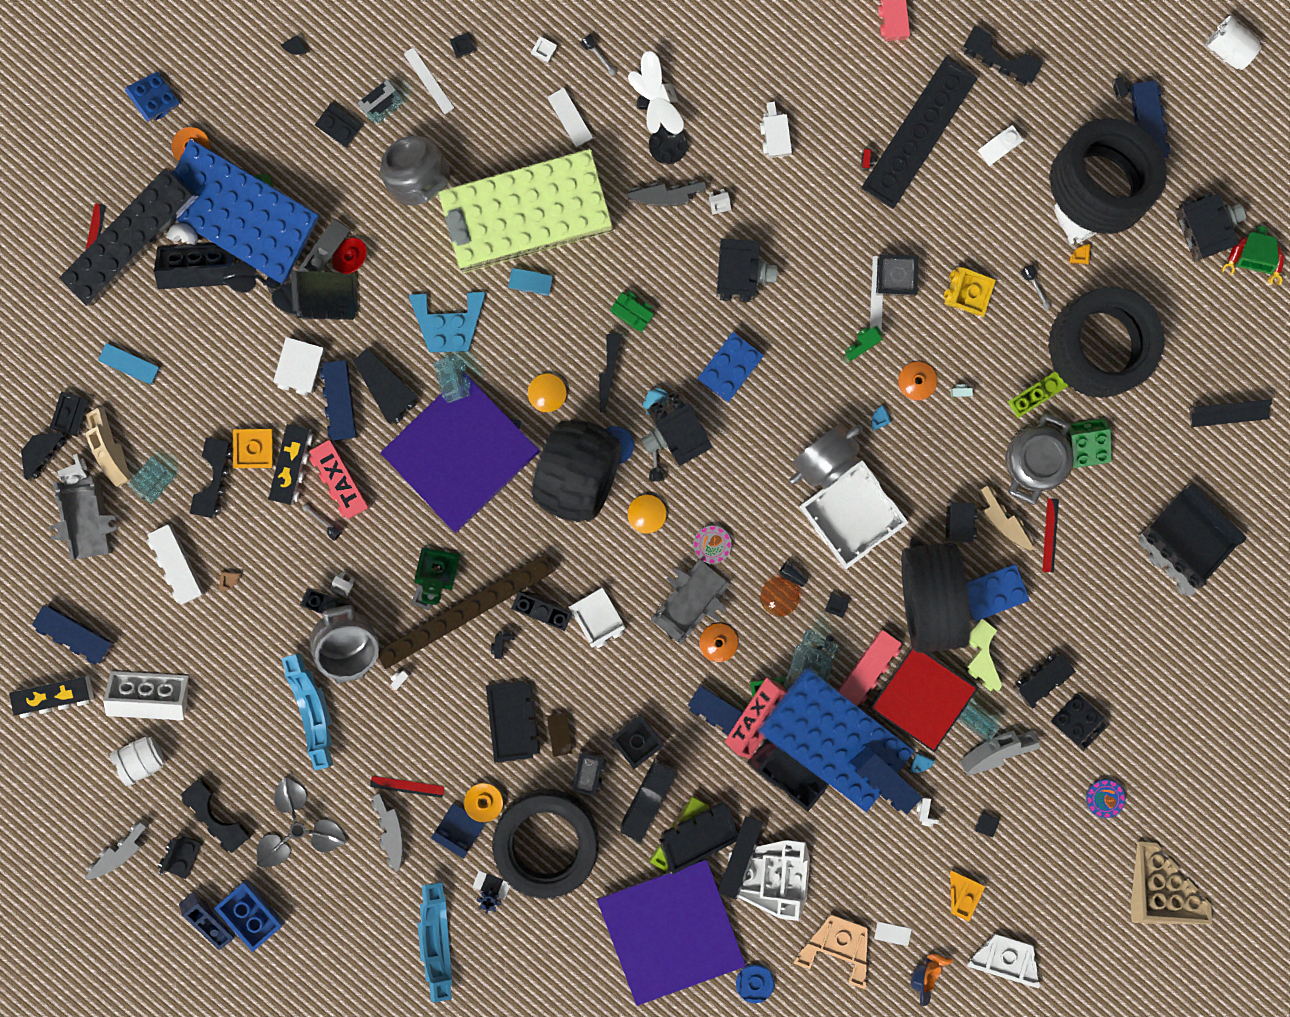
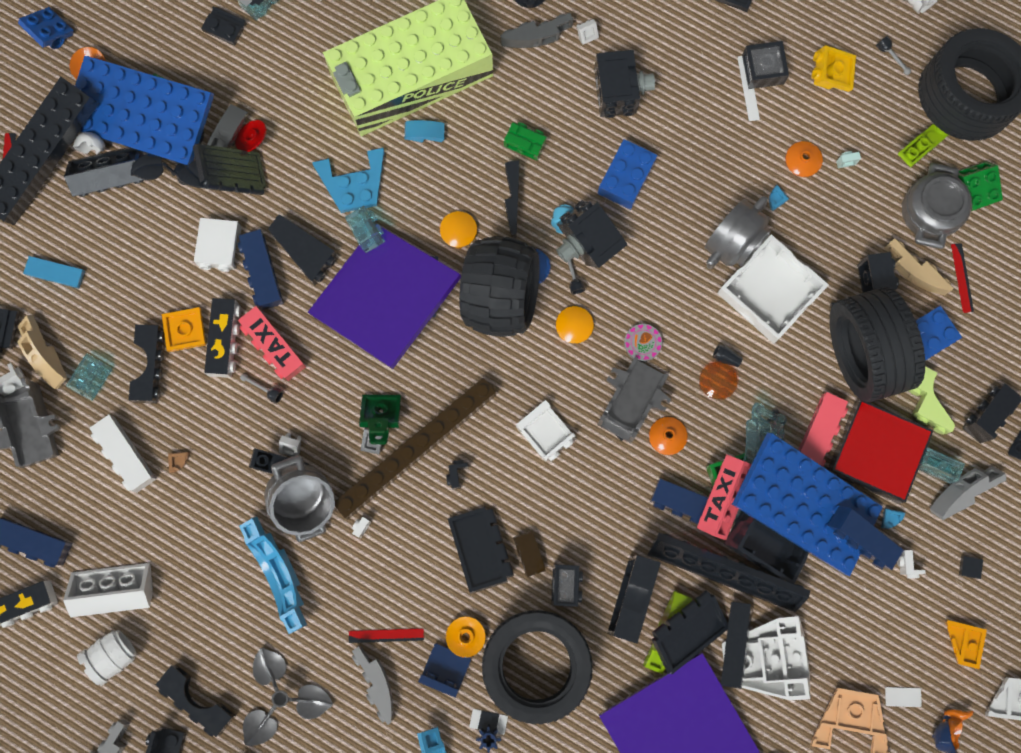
camera: 10 degrees left, 10 degrees down
(414, 170) = (297, 43): flat silver piece -> none
(542, 609) = (490, 432): black slope -> none
(637, 741) = (608, 545): black brick -> none
(747, 788) = (728, 572): none -> black plate
(836, 605) = (775, 379): black tile -> none
(866, 339) = (749, 128): green plate -> none
(1080, 255) = (927, 23): light orange tile -> none

